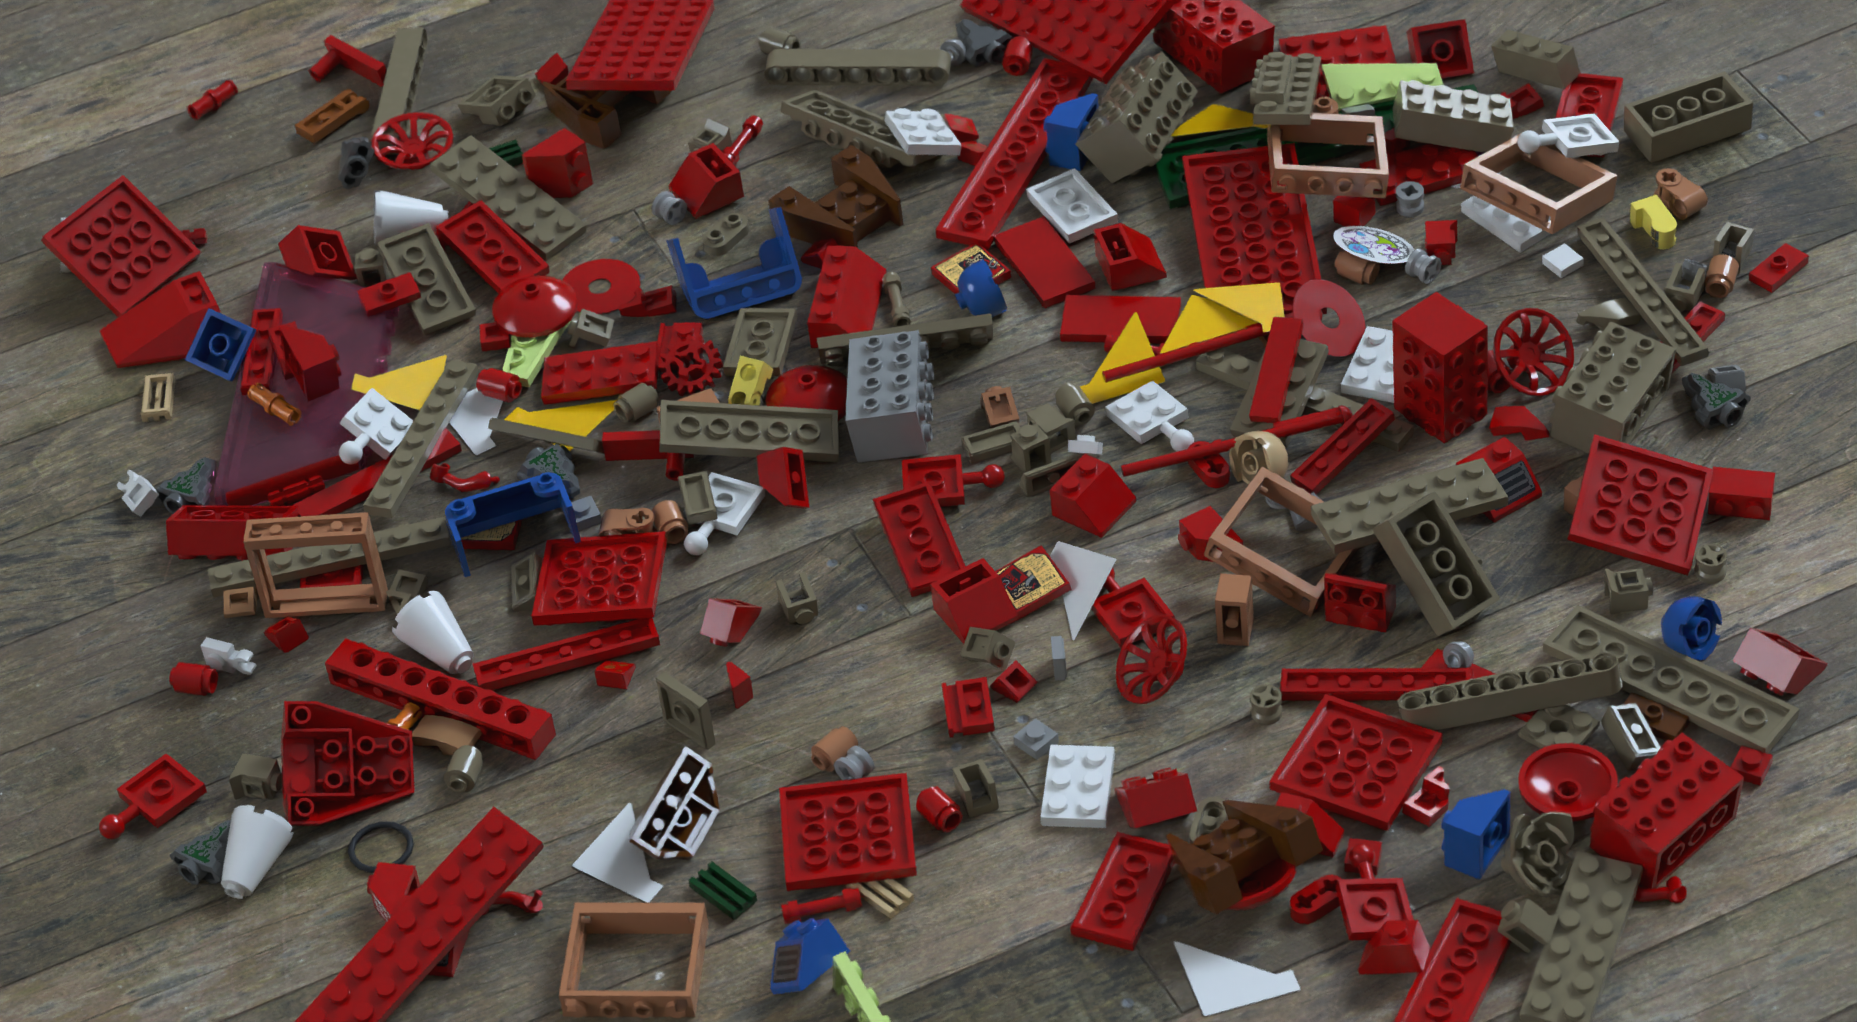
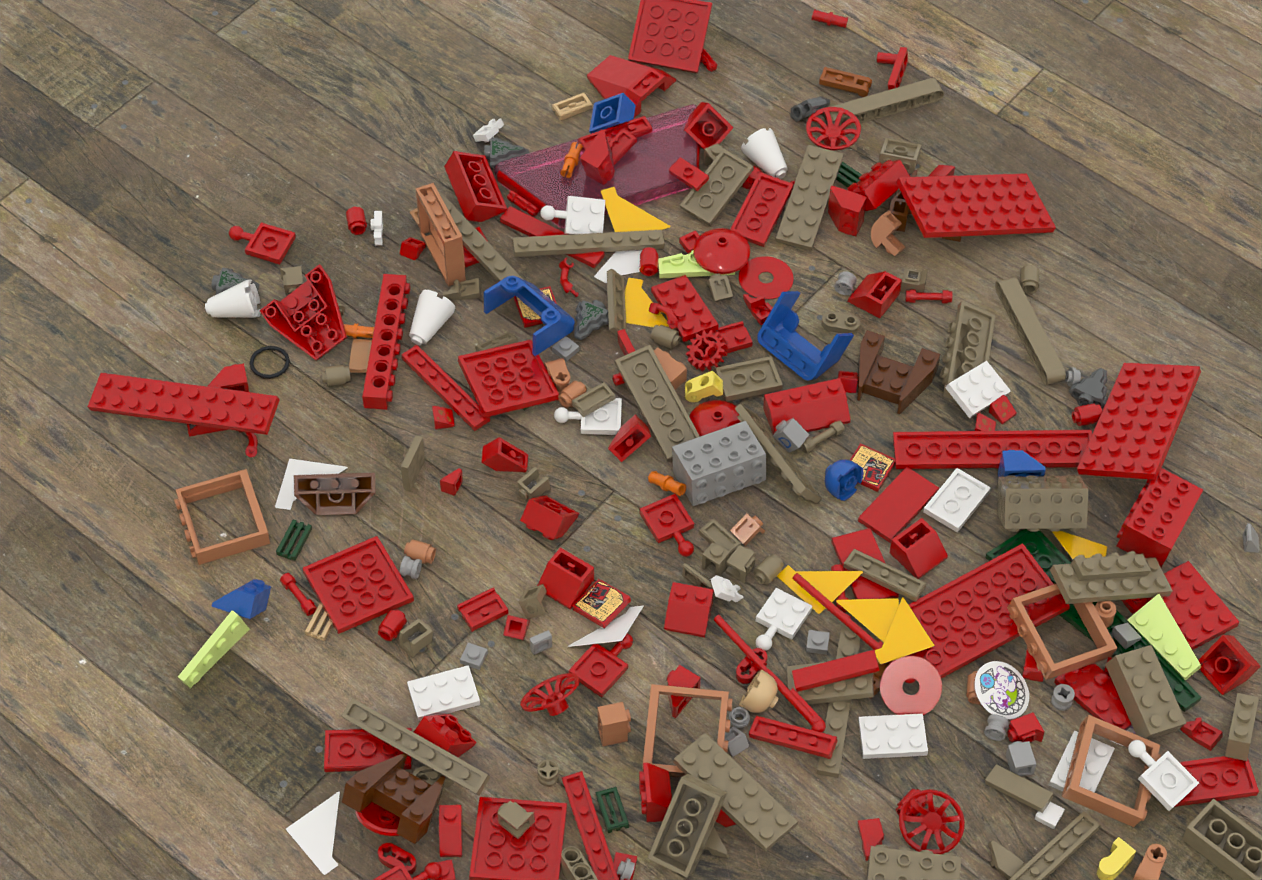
camera: 60 degrees right, 10 degrees up
(537, 115) = (879, 182): none -> red brick
(616, 141) = (883, 231): none -> nougat brick
(616, 382) = (672, 321): none -> red piece
(861, 598) = (548, 517): none -> red slope
(880, 316) = (790, 434): none -> light grey brick
(880, 463) = (667, 483): none -> orange pin
(918, 536) = (612, 530): red tile -> none
(1150, 295) = (885, 575): none -> dark tan tile
(1162, 818) = (416, 746): none -> dark tan plate
(1207, 393) = (817, 642): none -> light grey plate
(1329, 744) = (515, 818): none -> dark tan window
(1356, 655) = (617, 825): none -> dark green tile
(1440, 367) = (870, 766): red brick -> none
(1477, 258) = (1020, 758): none -> light grey brick
(1512, 473) = (807, 843): red slope -> none
(1517, 272) = (1019, 788): none -> dark tan tile

